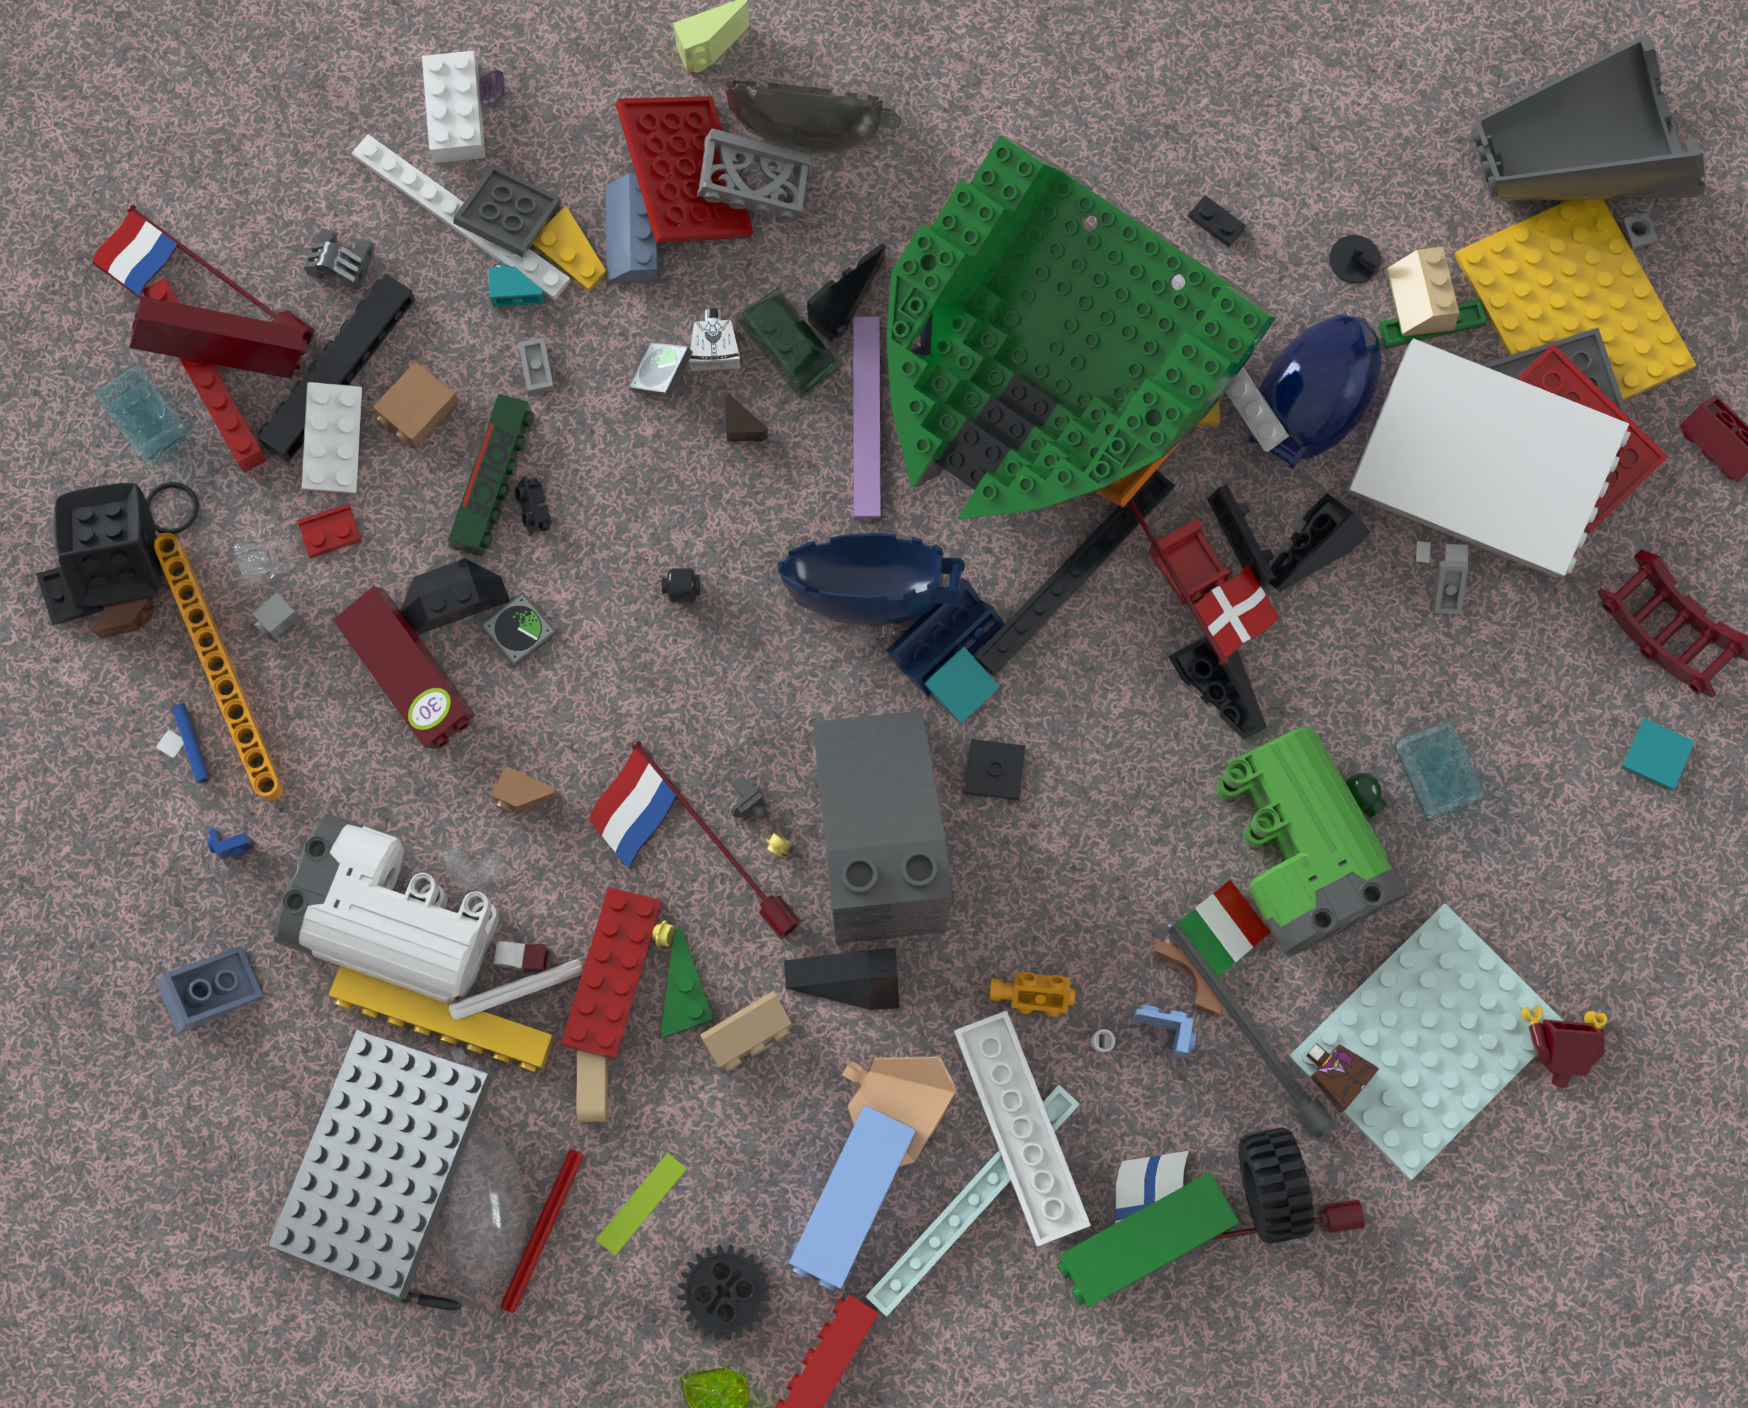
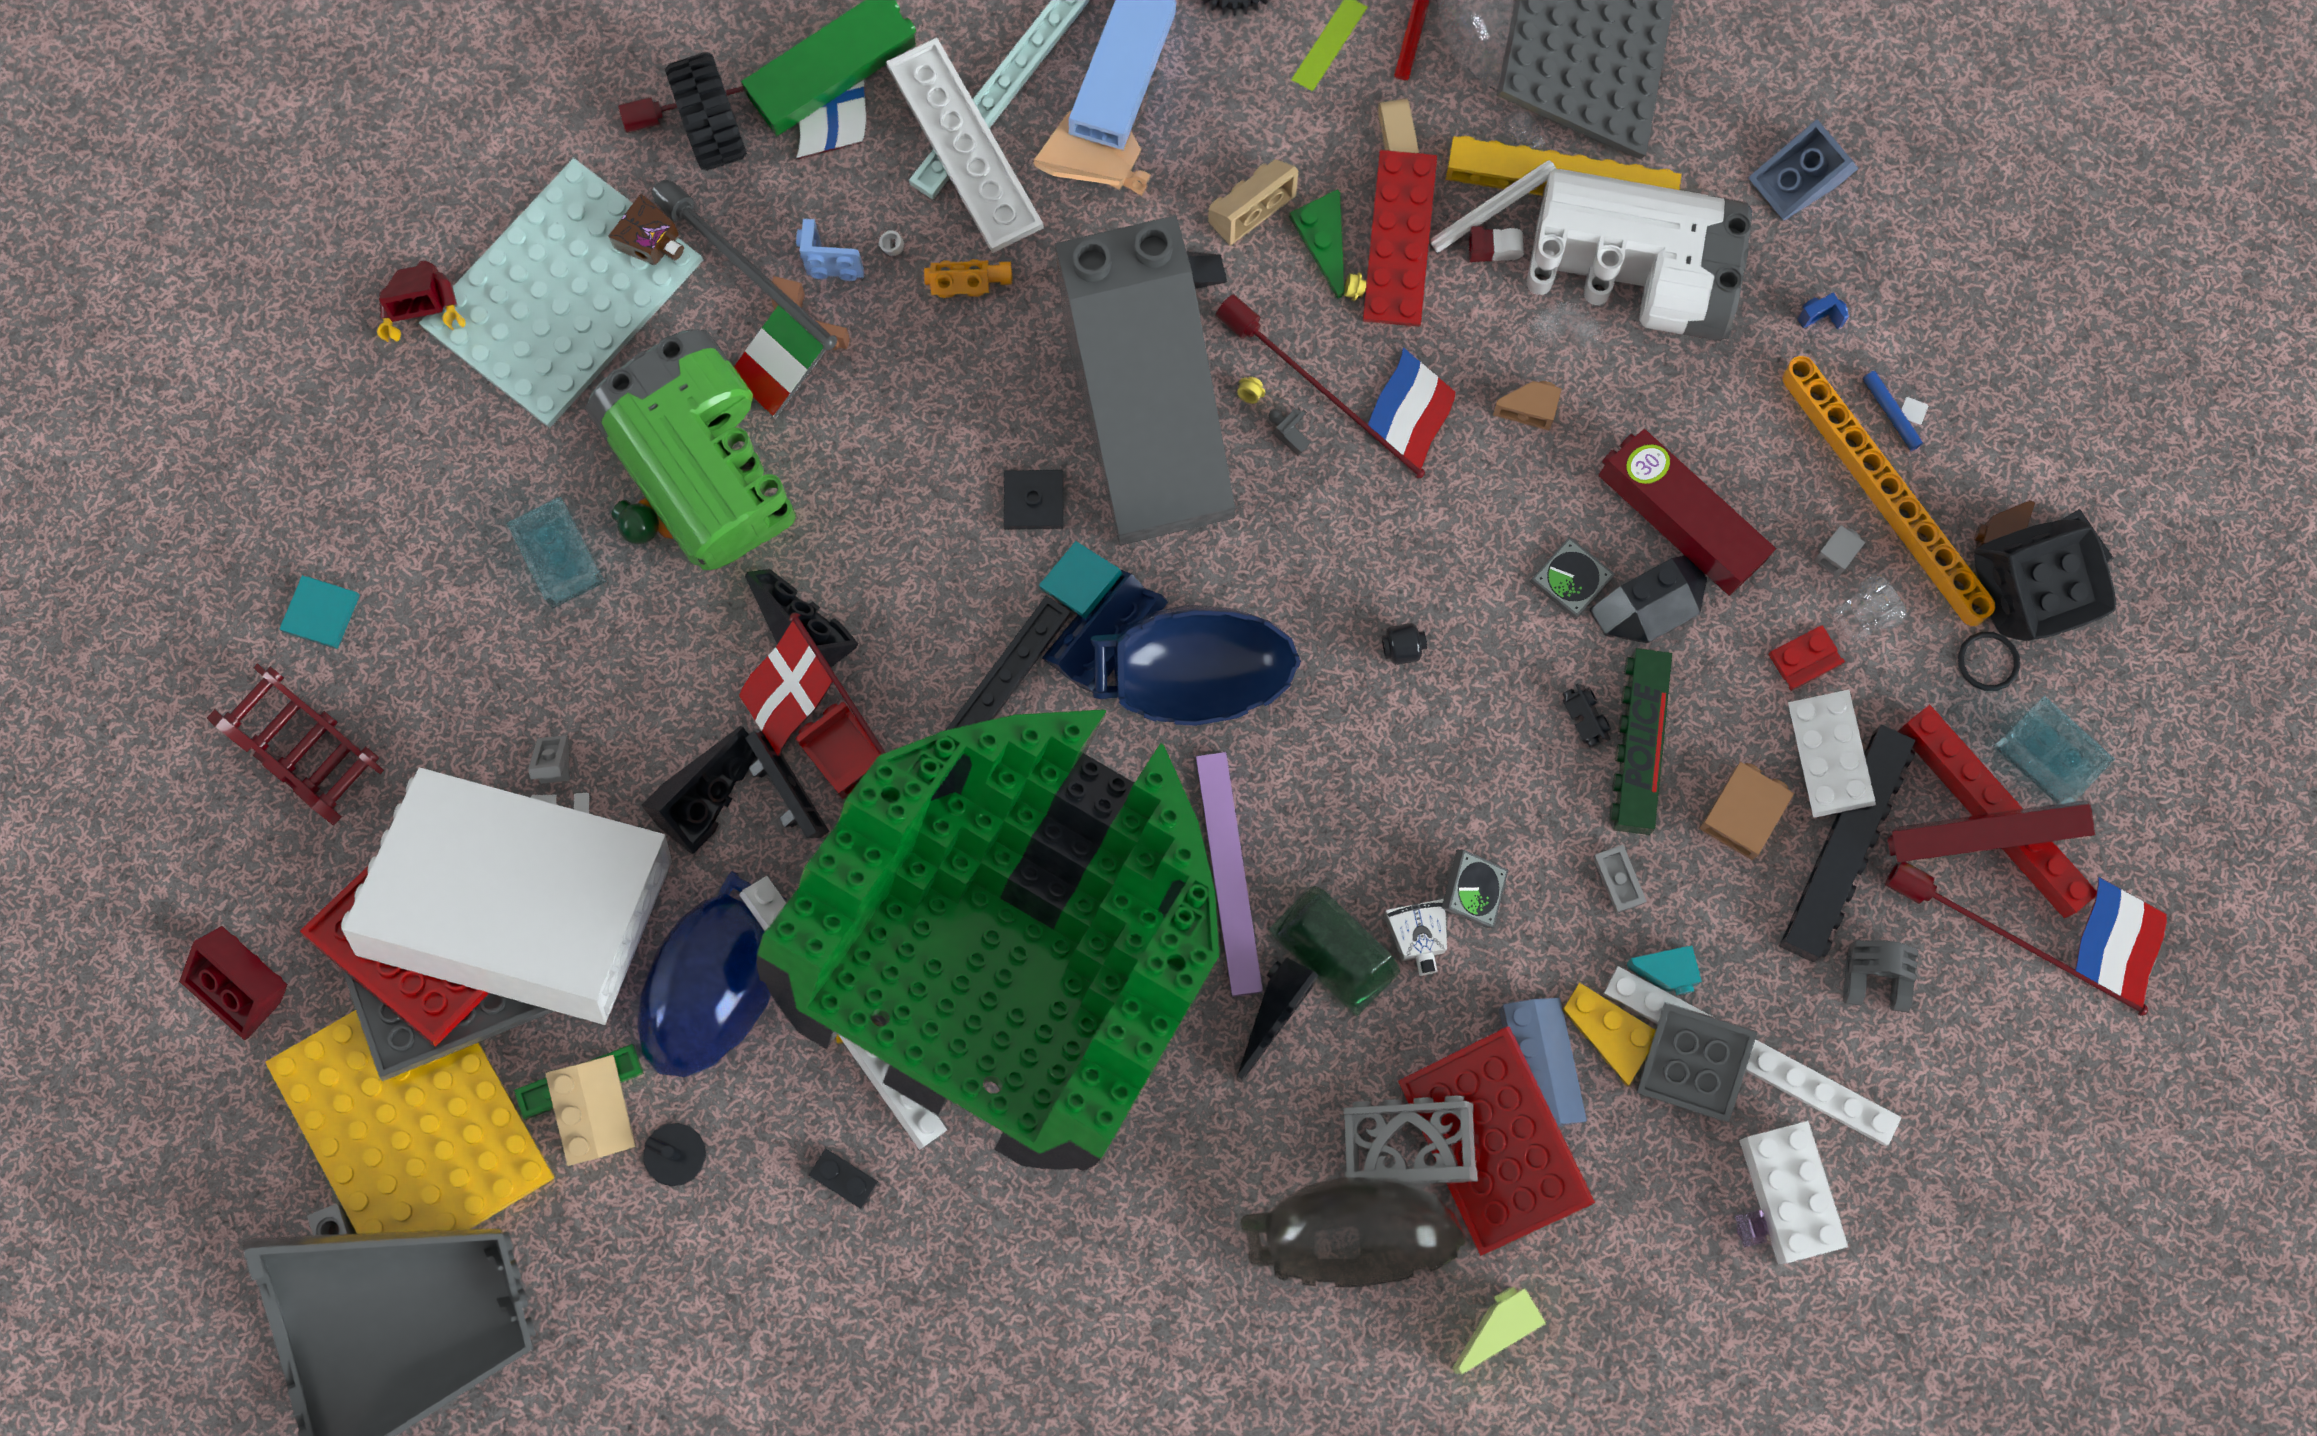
camera: 175 degrees right, 0 degrees up
(742, 424) = (1370, 840): dark brown slope -> none

